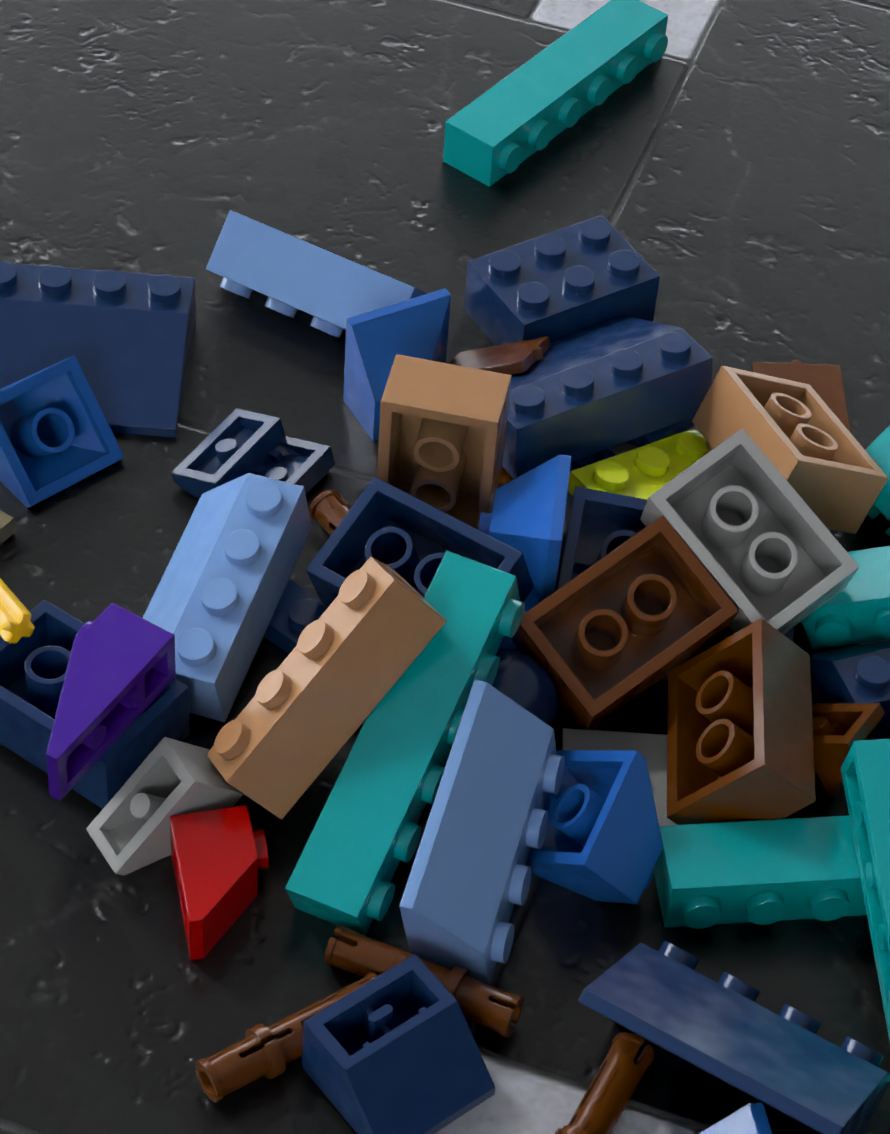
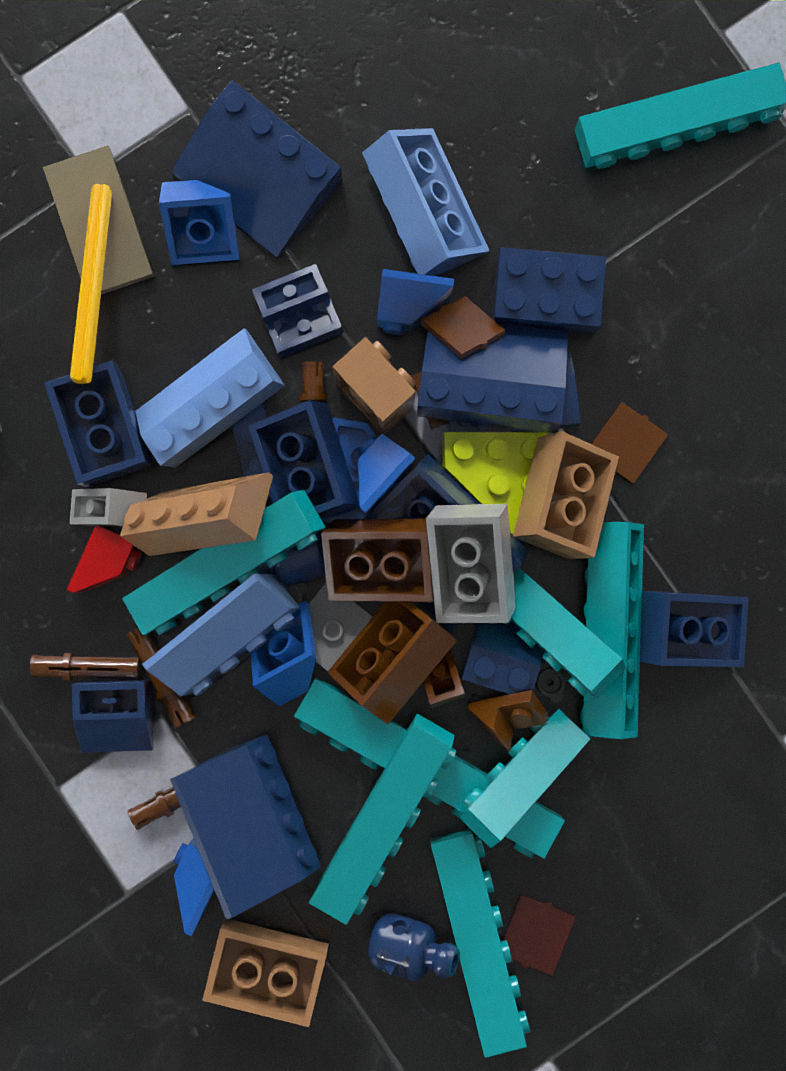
camera: 35 degrees right, 40 degrees up
(110, 680) = (93, 446): dark purple slope -> none

